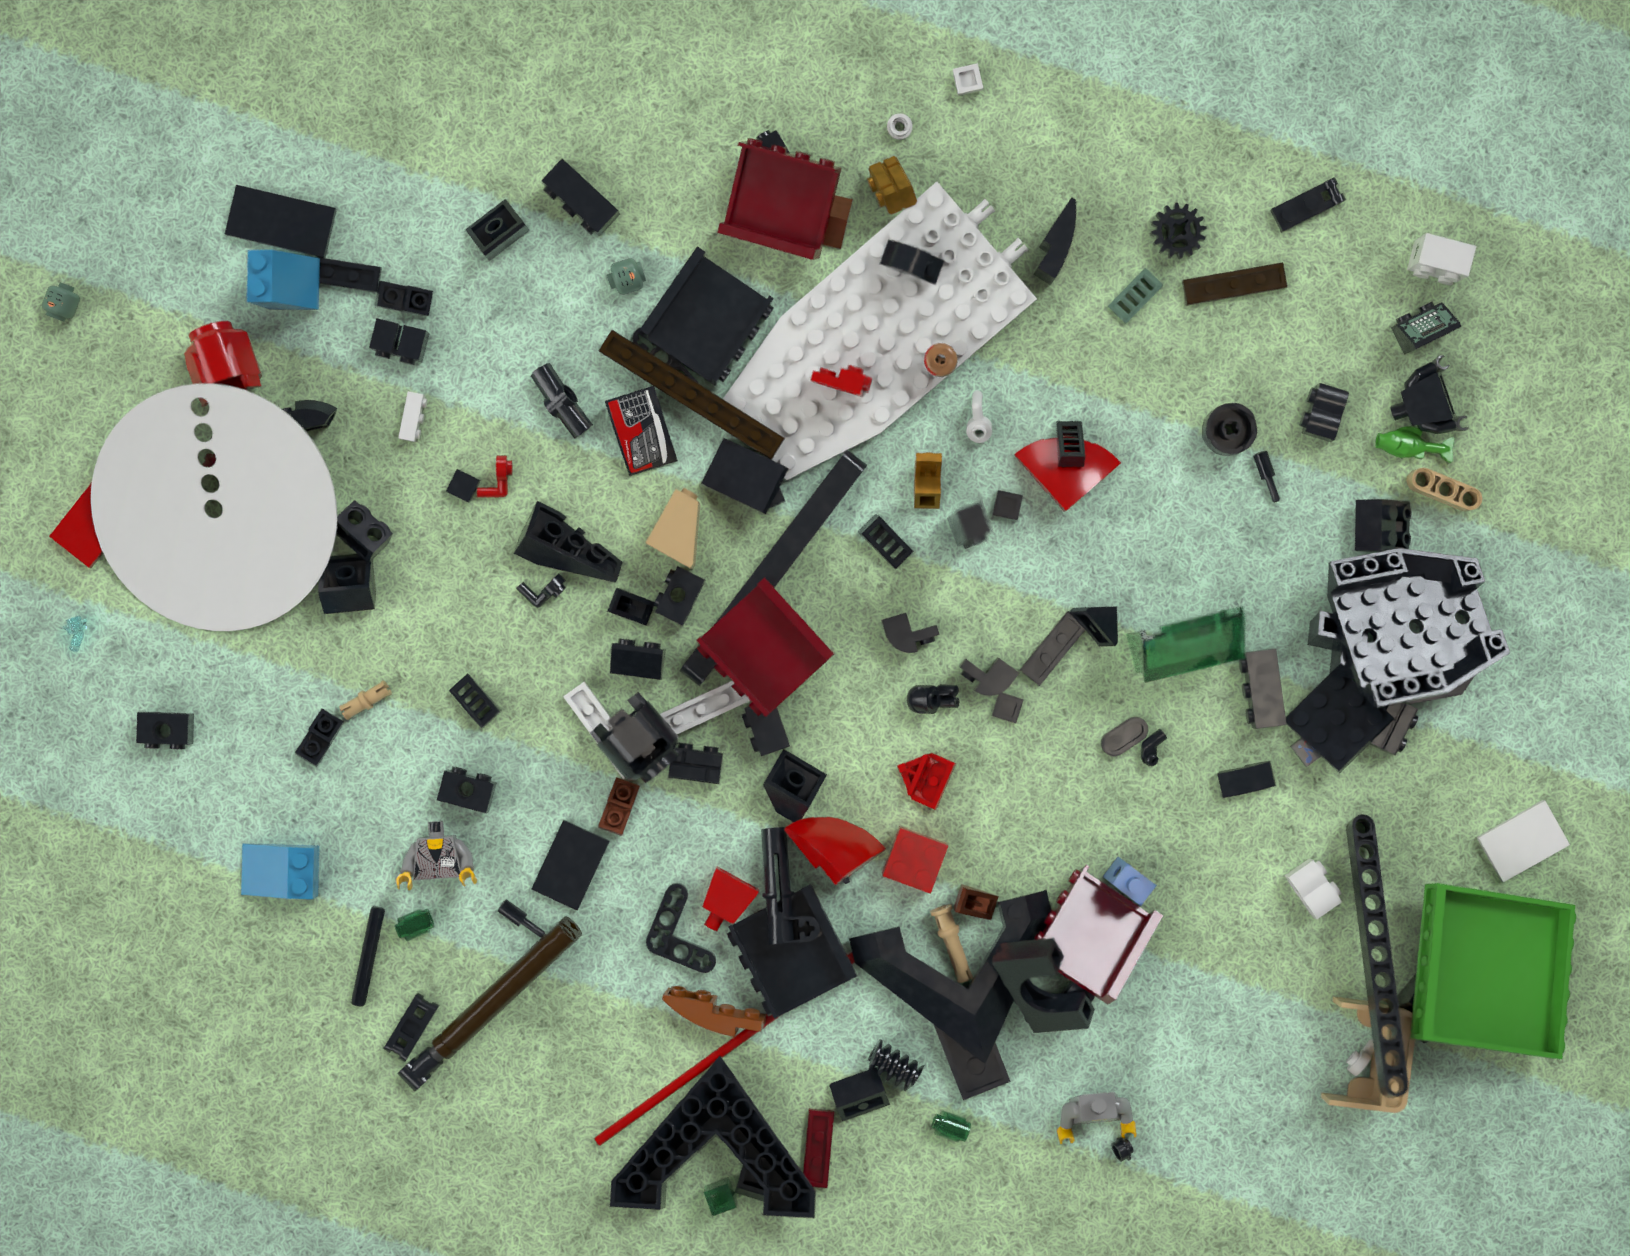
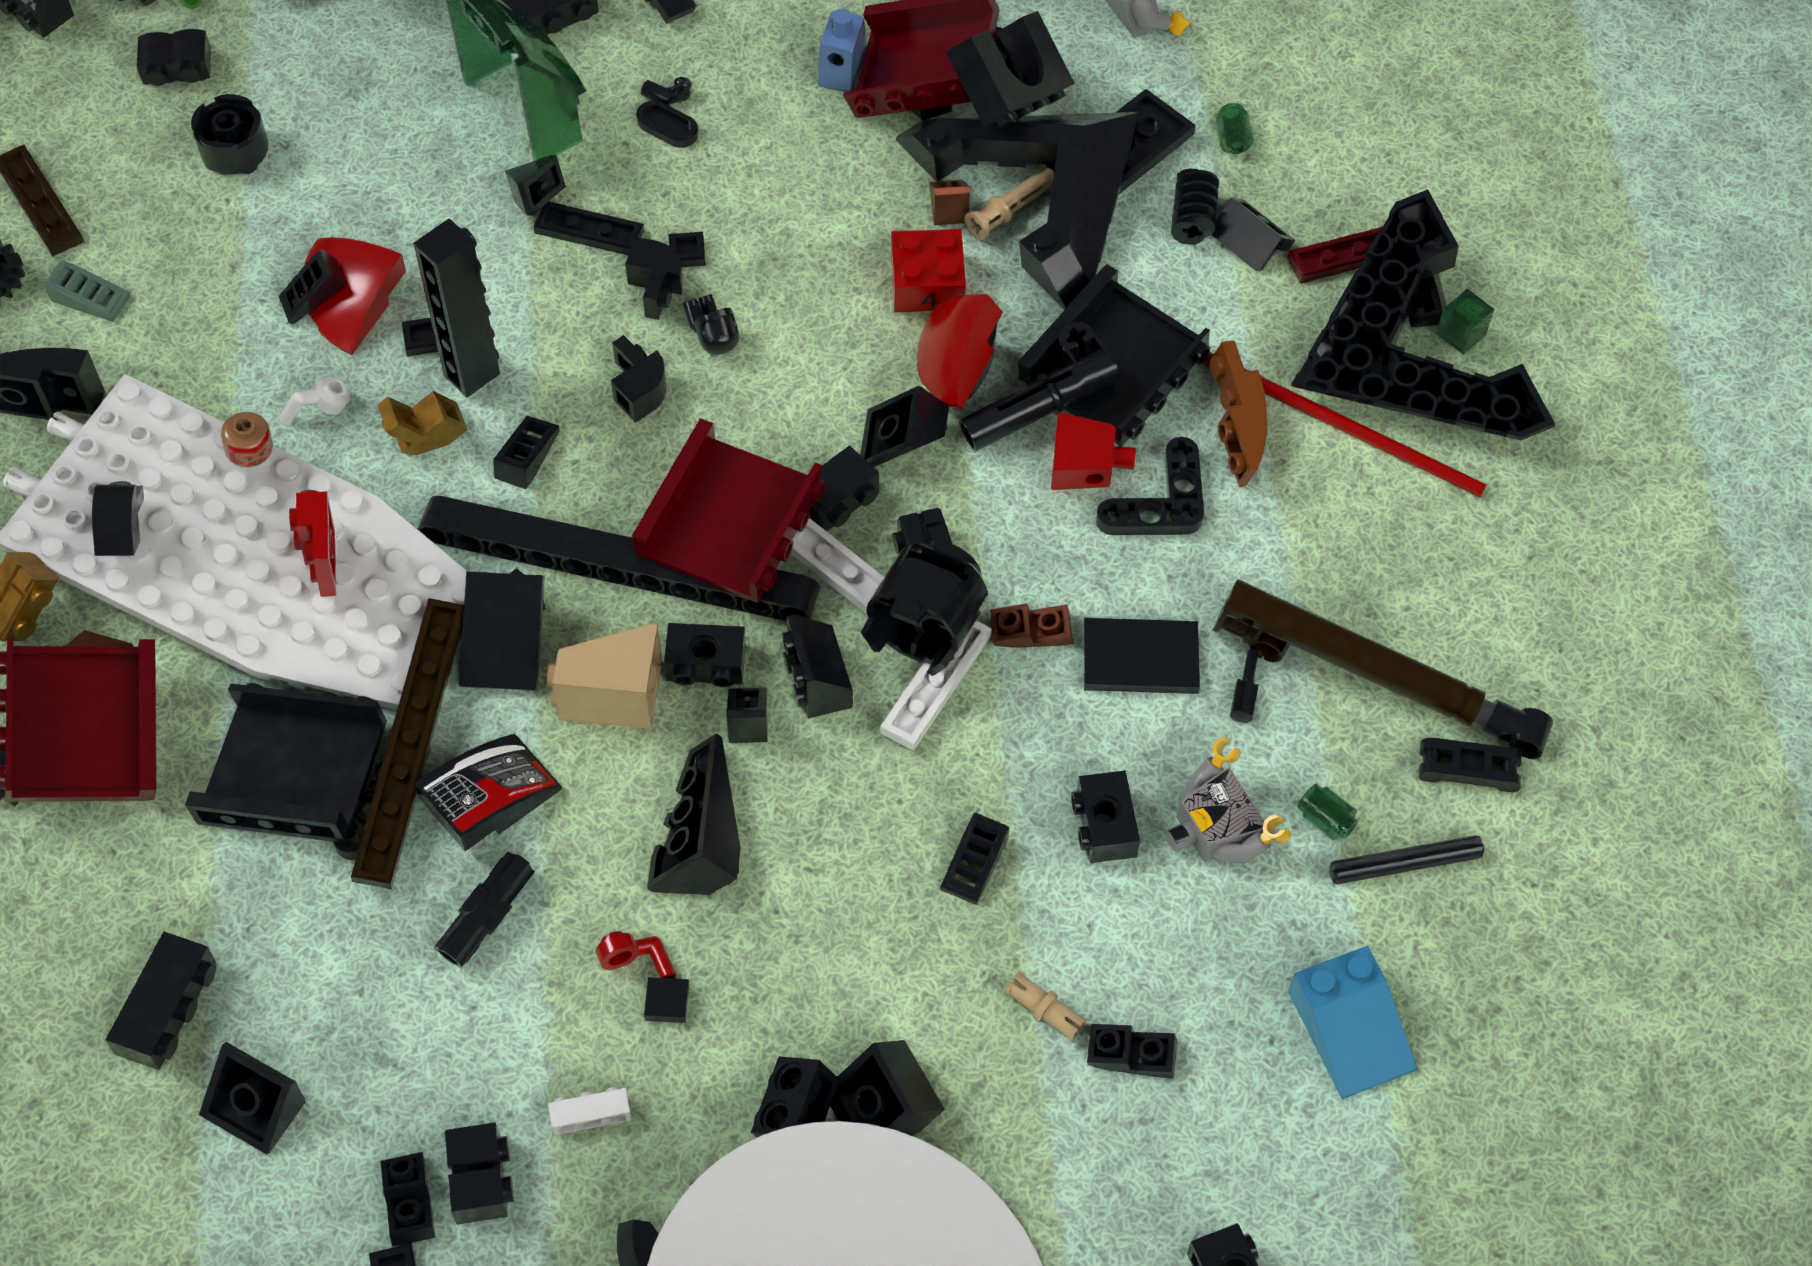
camera: 115 degrees left, 30 degrees down
(554, 587) = (766, 818): black plate -> none
(626, 276) = (263, 892): sand green head -> none
(927, 778) = (818, 299): red slope -> none
(1267, 472) = (273, 91): black axle -> none

